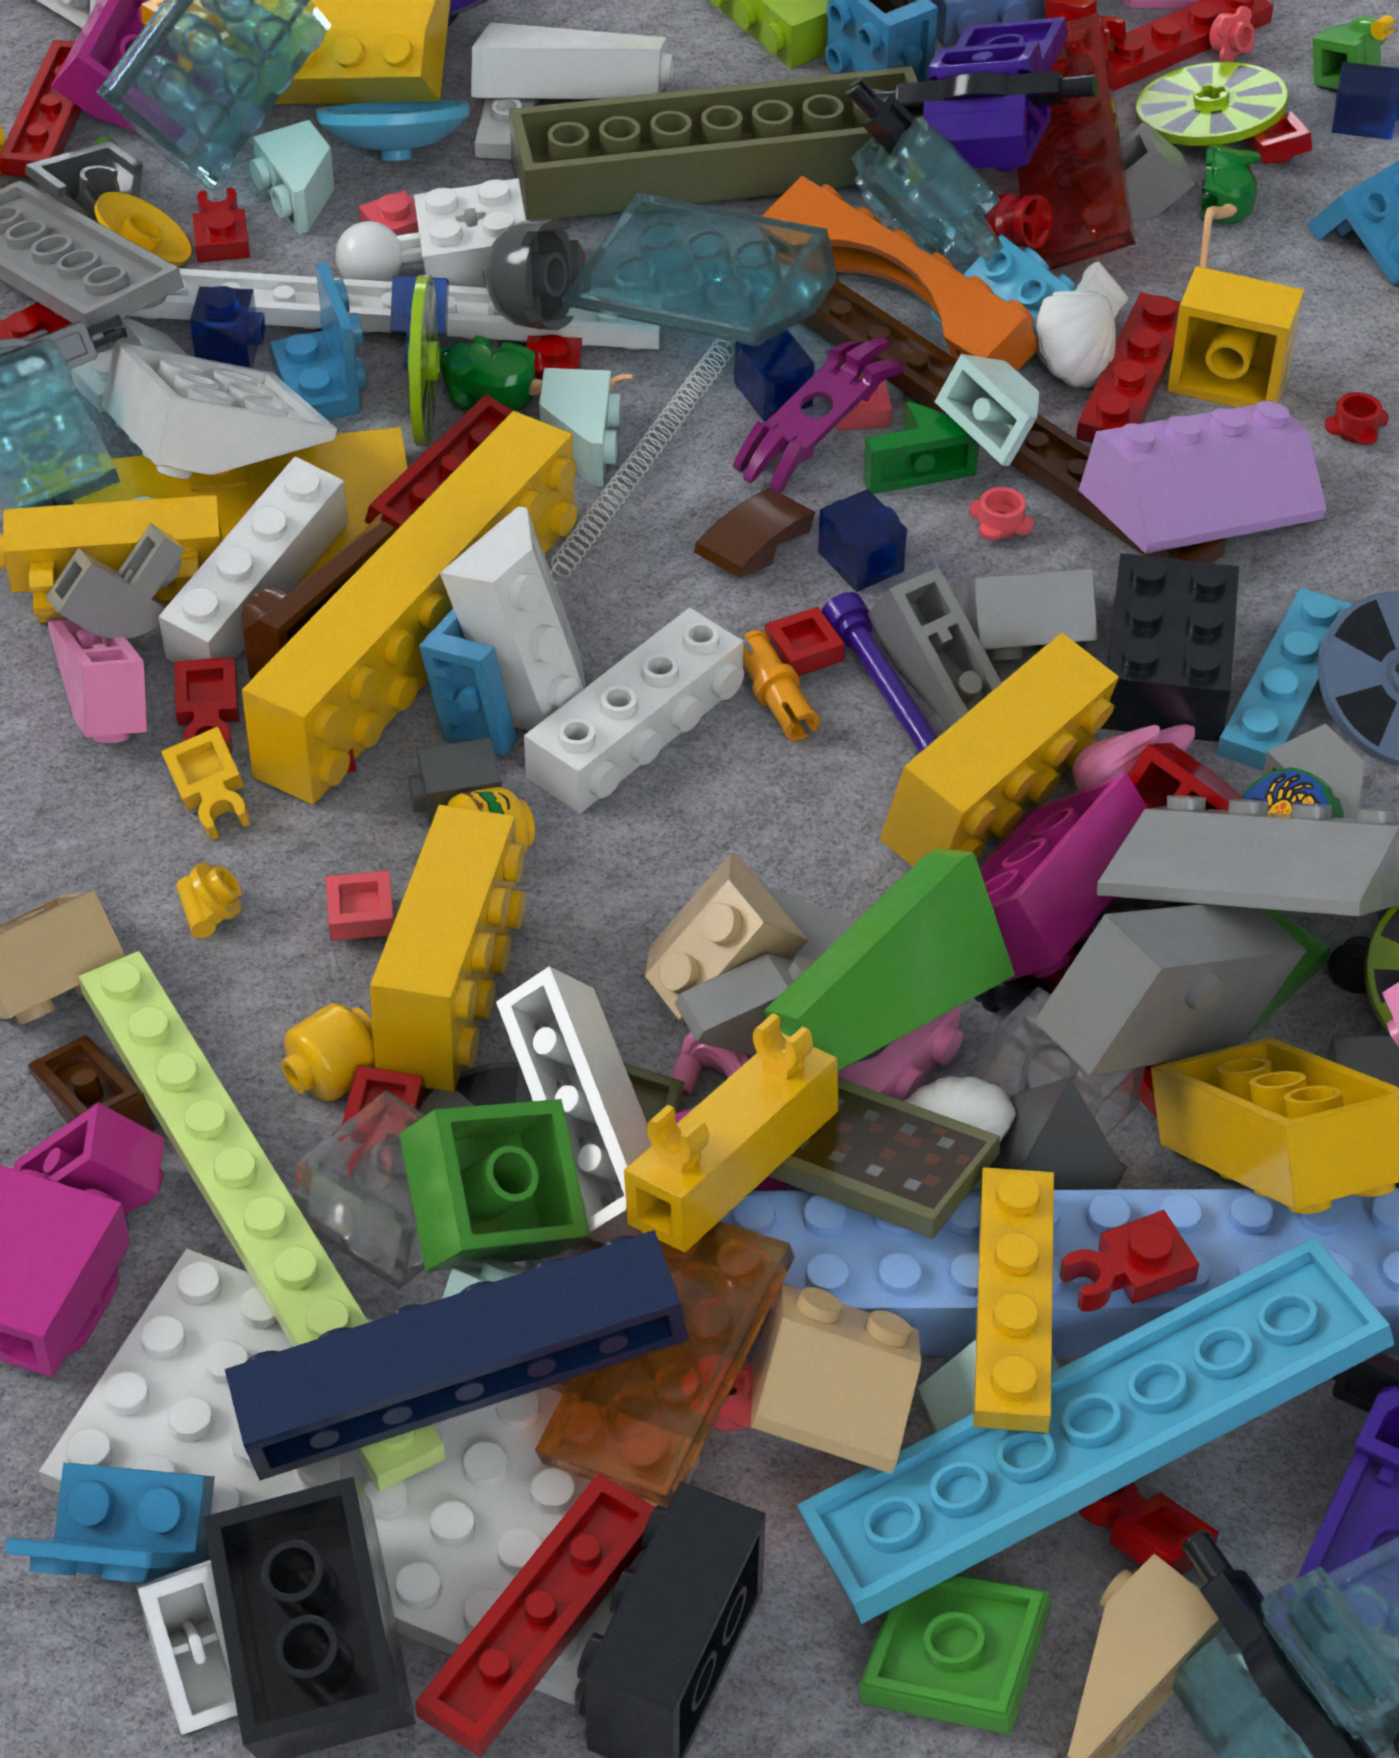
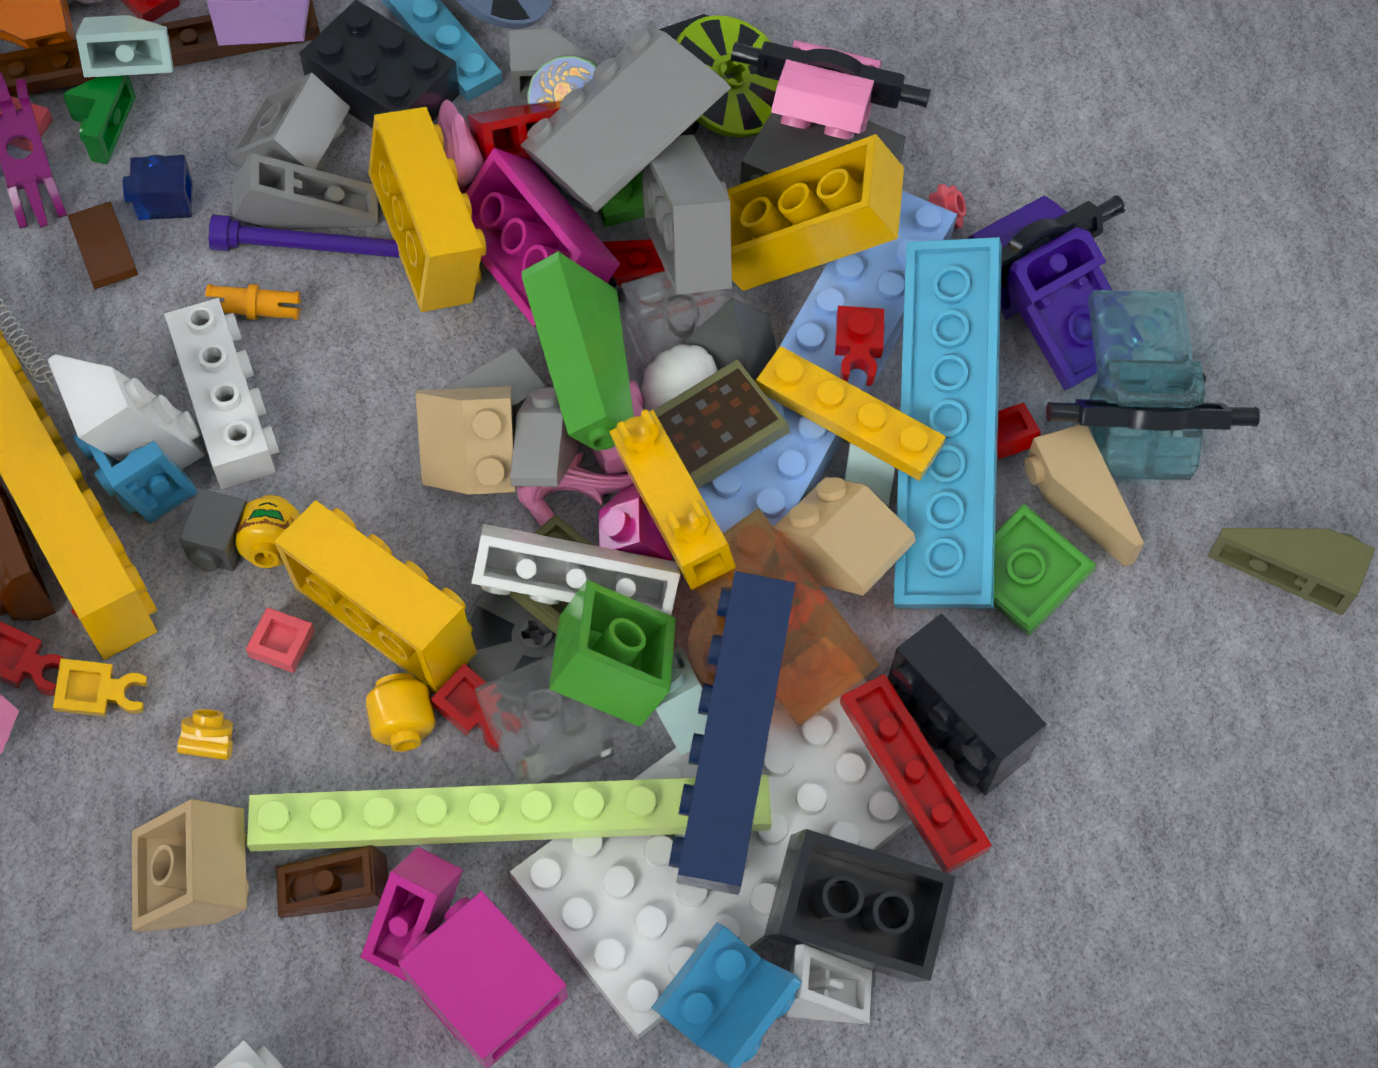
camera: 65 degrees left, 15 degrees up
(805, 641) = (226, 265): red plate -> none
(1001, 514) = (191, 100): coral plate -> none

